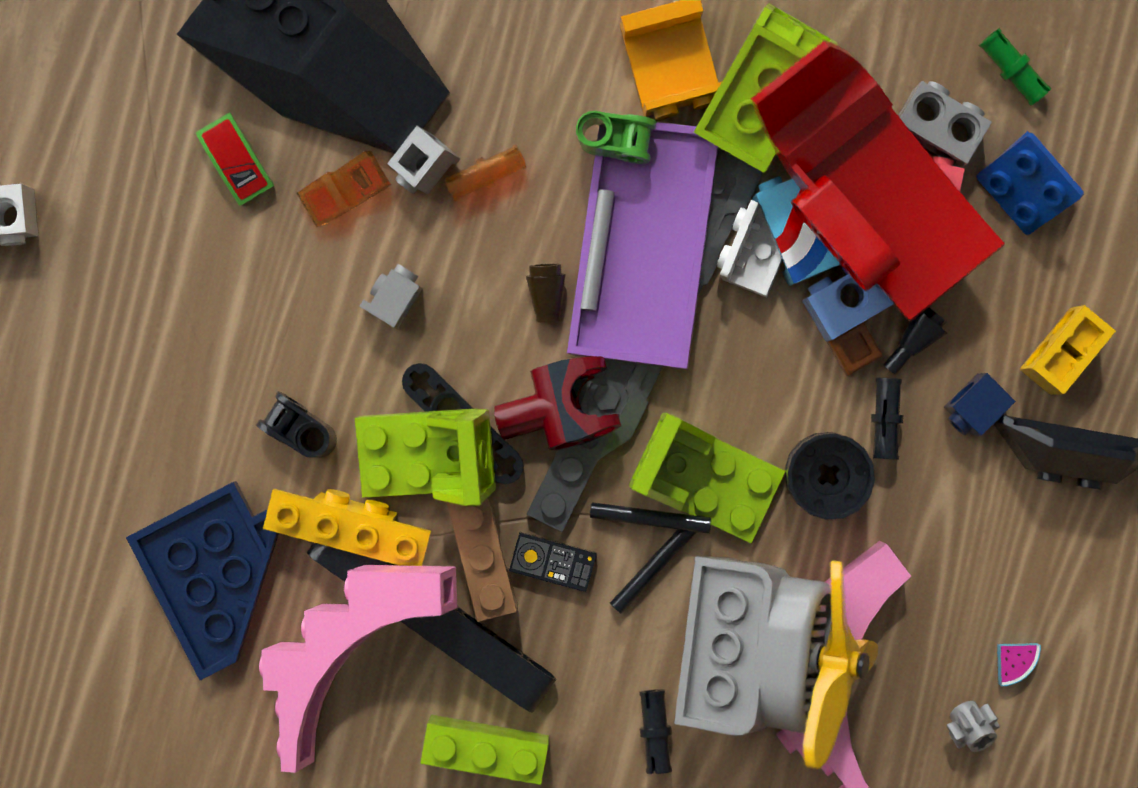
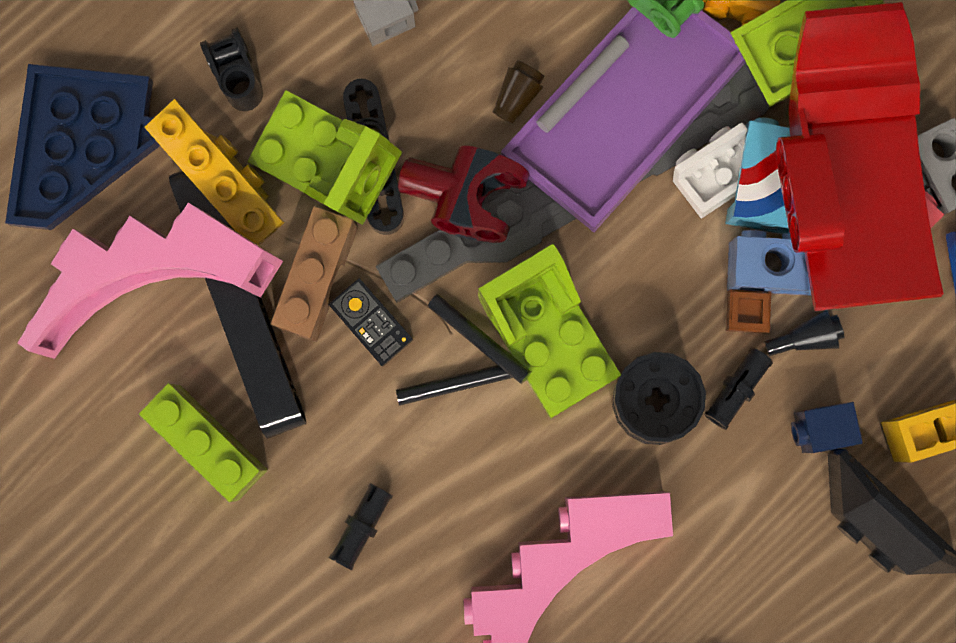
camera: 35 degrees right, 5 degrees down
(769, 653) = (504, 515): light grey brick -> none

